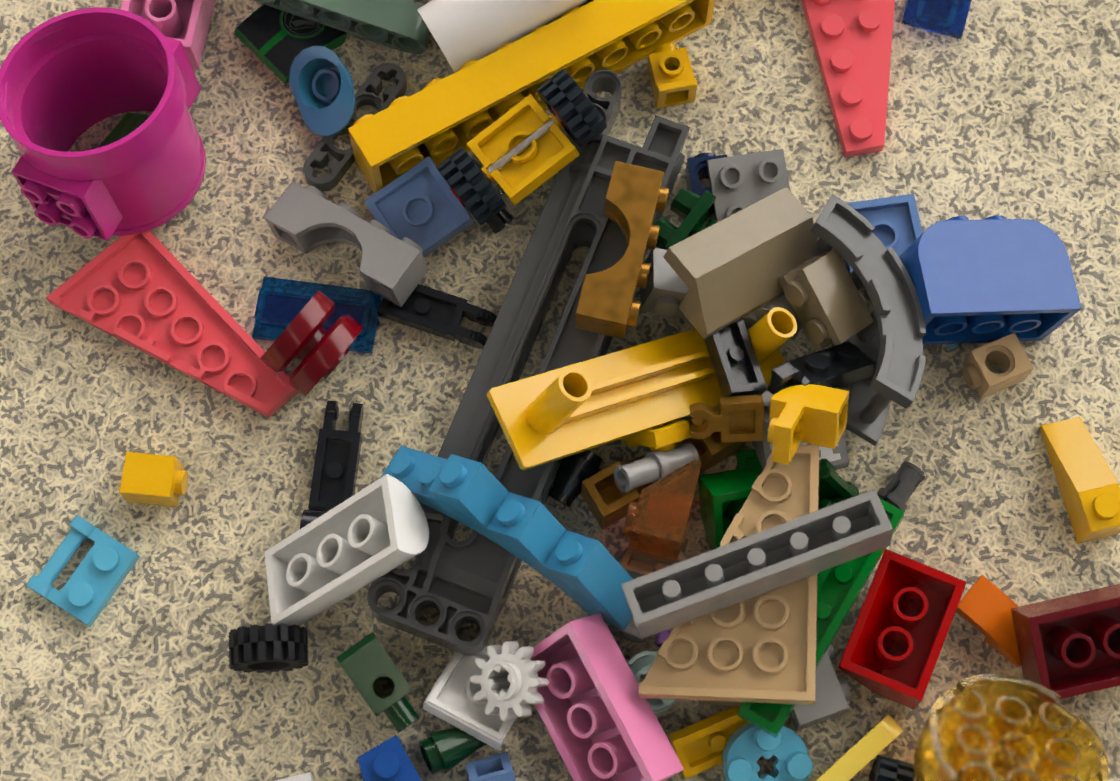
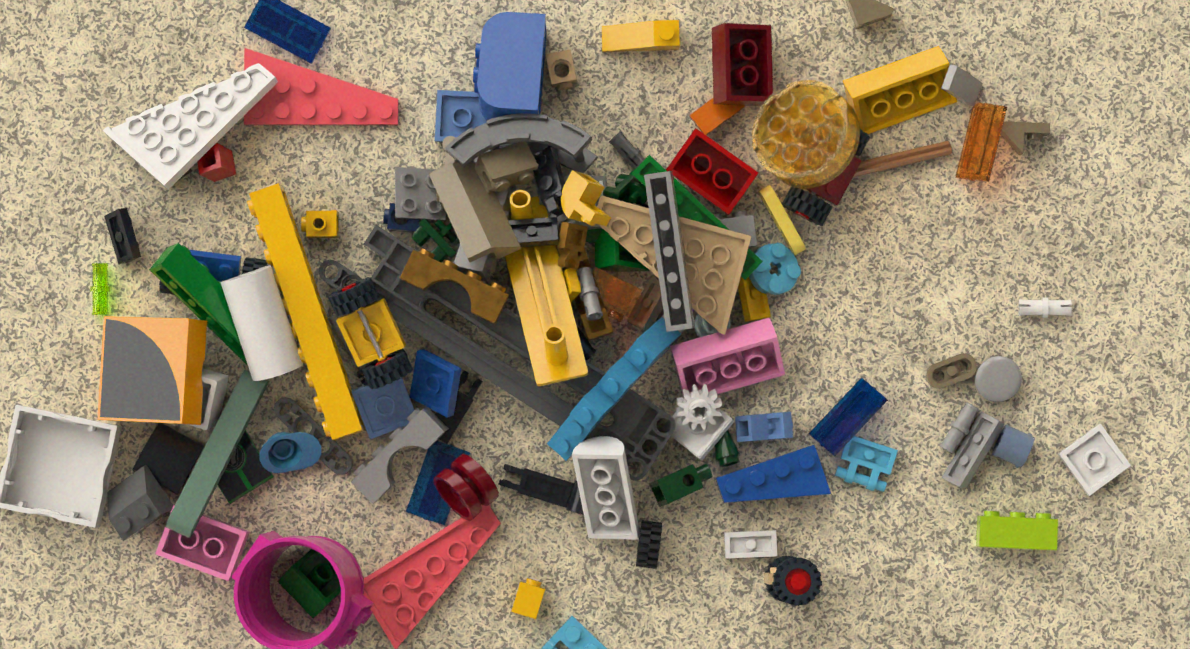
camera: 80 degrees left, 15 degrees up
(466, 270) = (435, 383): none -> blue plate

